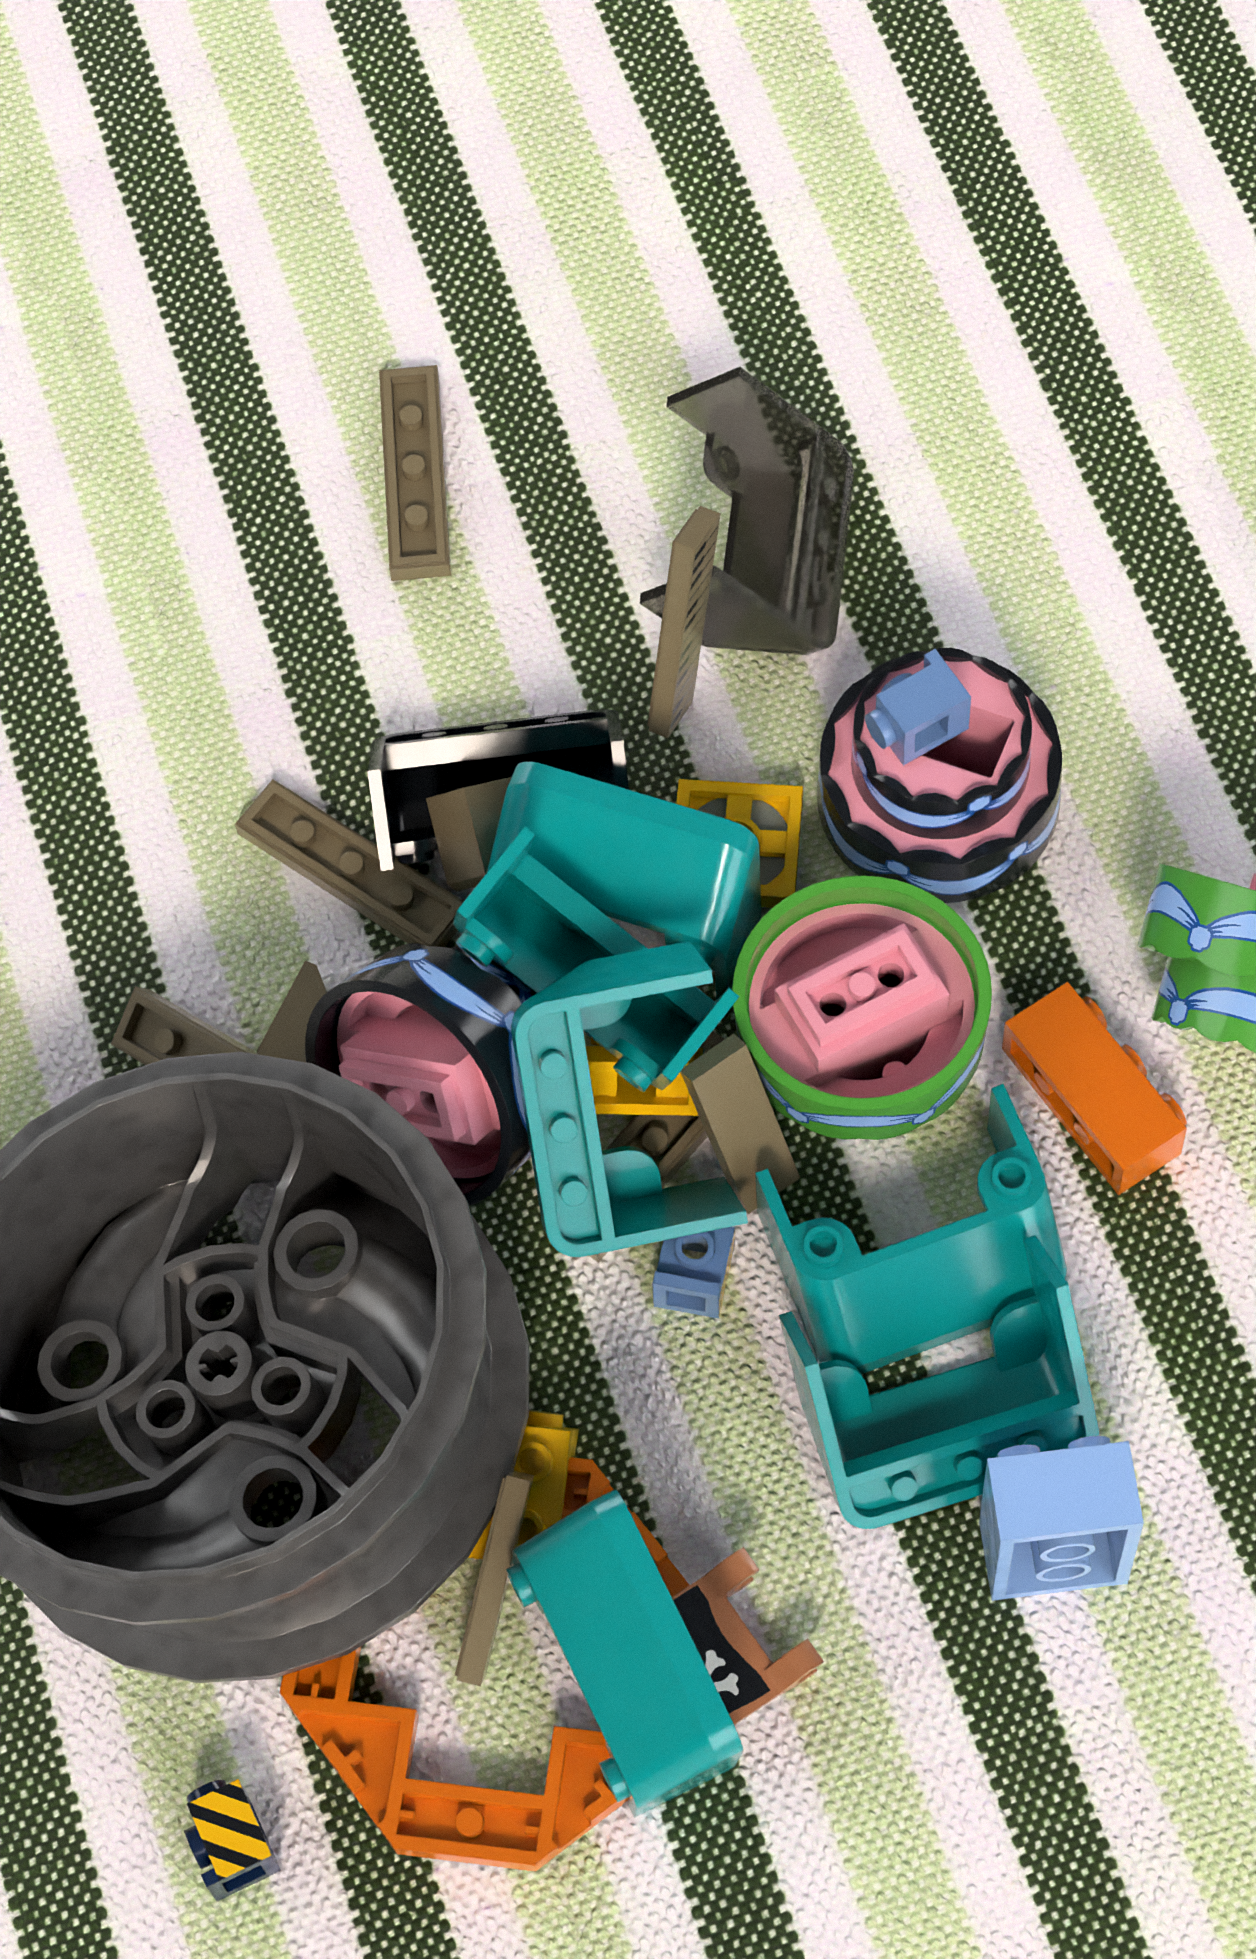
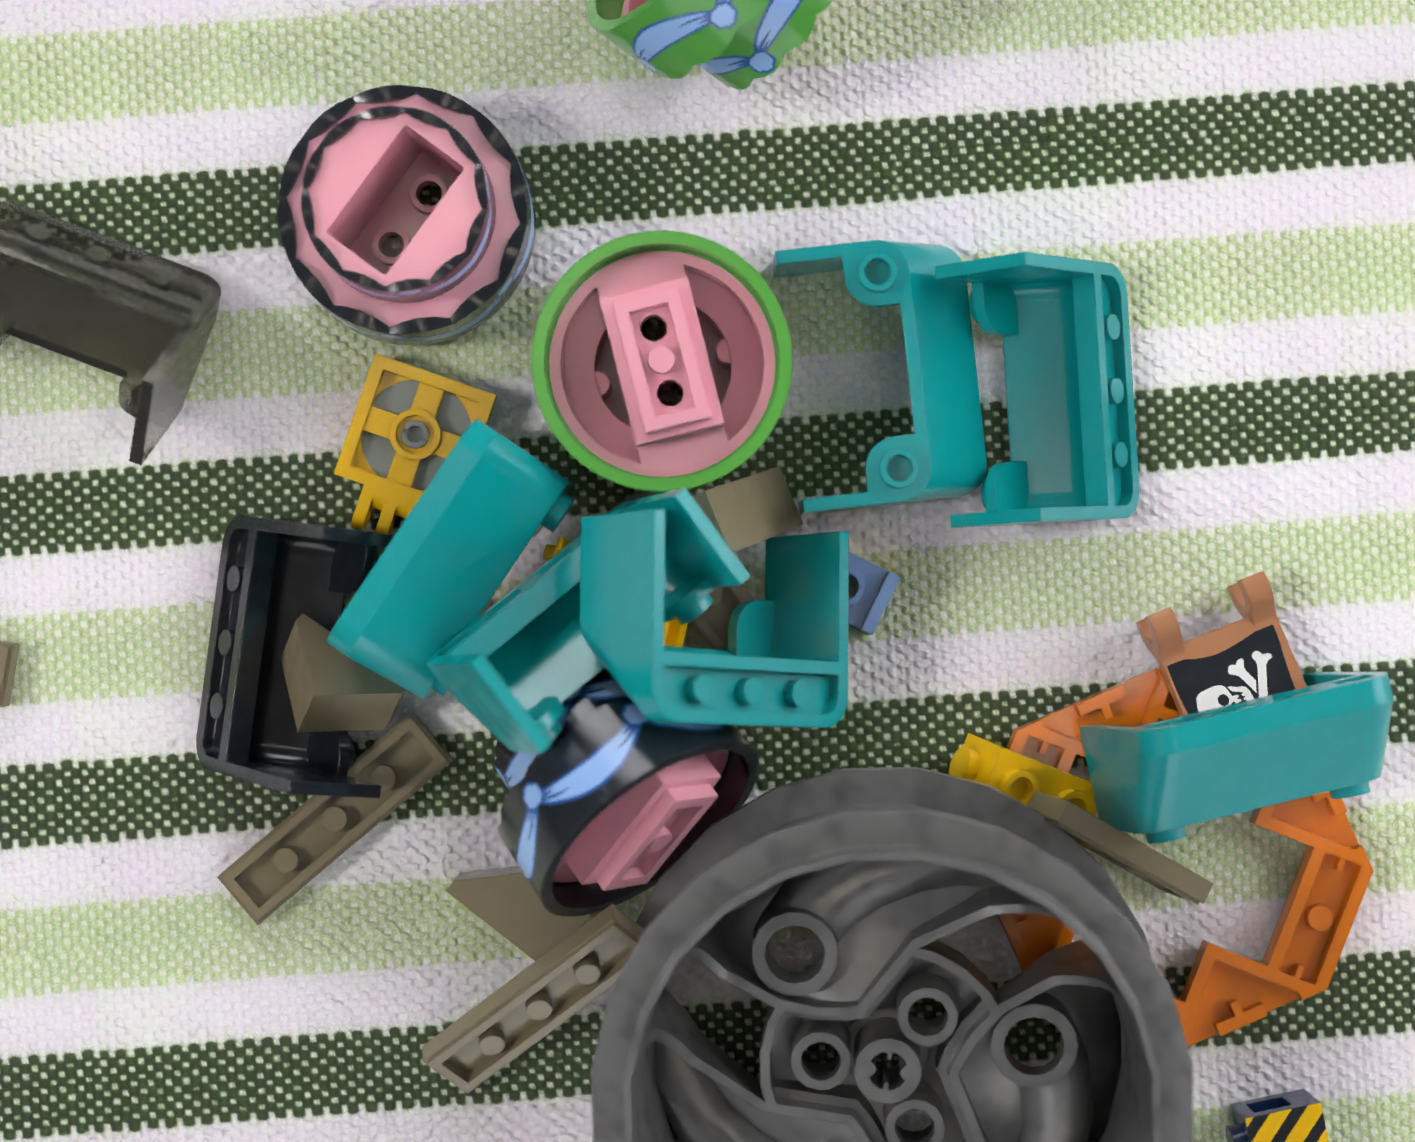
camera: 80 degrees left, 25 degrees up
(683, 620) = (184, 425): dark tan tile -> none
(920, 710) = (383, 218): medium blue brick -> none
(1060, 1518) = (1216, 324): light blue brick -> none
(1095, 1087) = (771, 162): orange brick -> none

